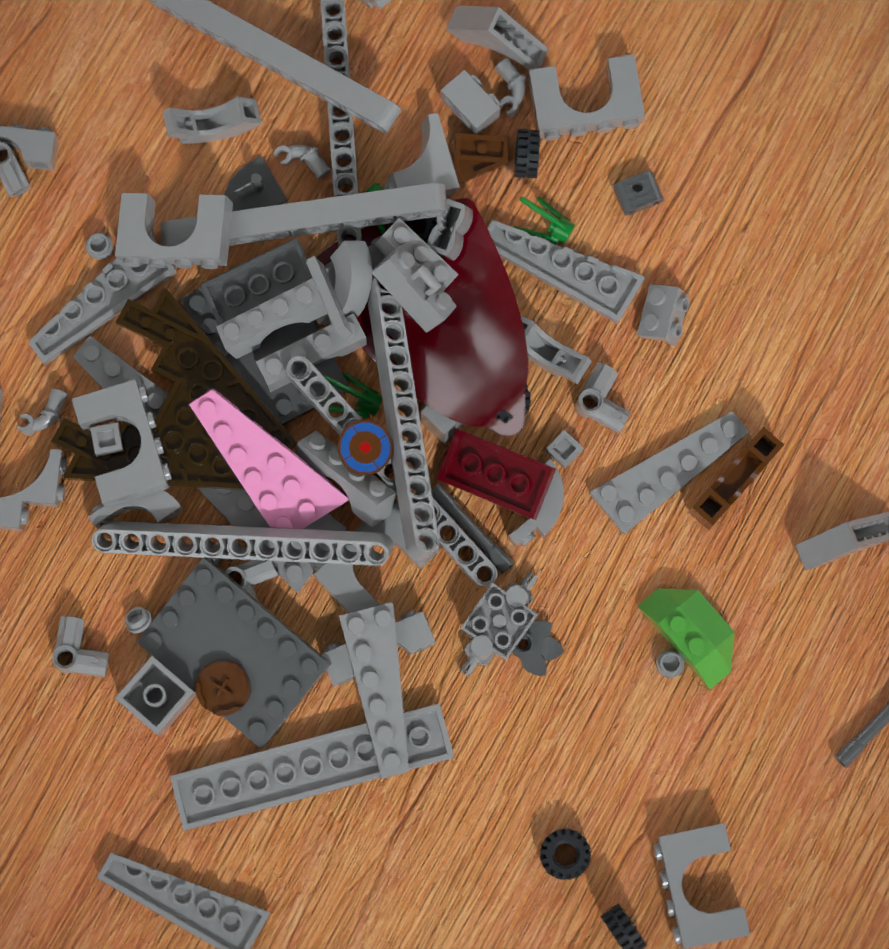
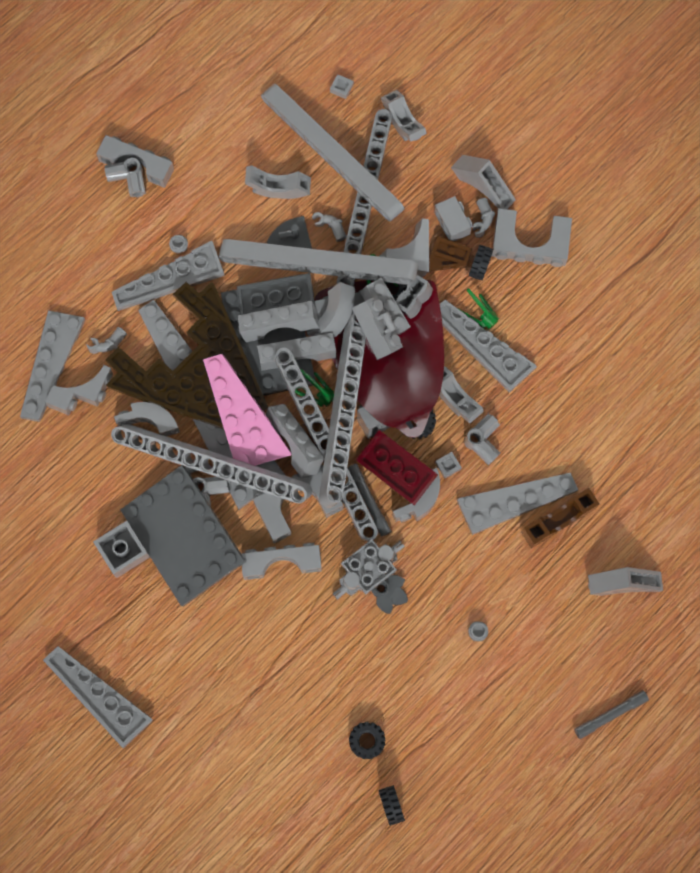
camera: 15 degrees right, 5 degrees down
(69, 641) = (76, 496): light grey piece -> none
(107, 439) = (142, 368): light grey plate -> none
(138, 620) = (126, 495): light grey plate -> none
(146, 472) = (161, 397): light grey arch -> none
(205, 246) = (246, 261): light grey arch -> none
(223, 687) = (168, 556): reddish brown tile -> none
(301, 770) = (212, 628): light grey plate -> none
(328, 297) = (318, 316): light grey tile -> none
(364, 447) = (312, 422): tile -> none
(375, 664) = (275, 572): light grey wing -> none
(638, 193) = (548, 310): dark grey piece -> none
(663, 314) = (542, 394): light grey bracket -> none
(692, 926) = (441, 817): light grey arch -> none
(693, 631) = (500, 614): bright green wedge -> none

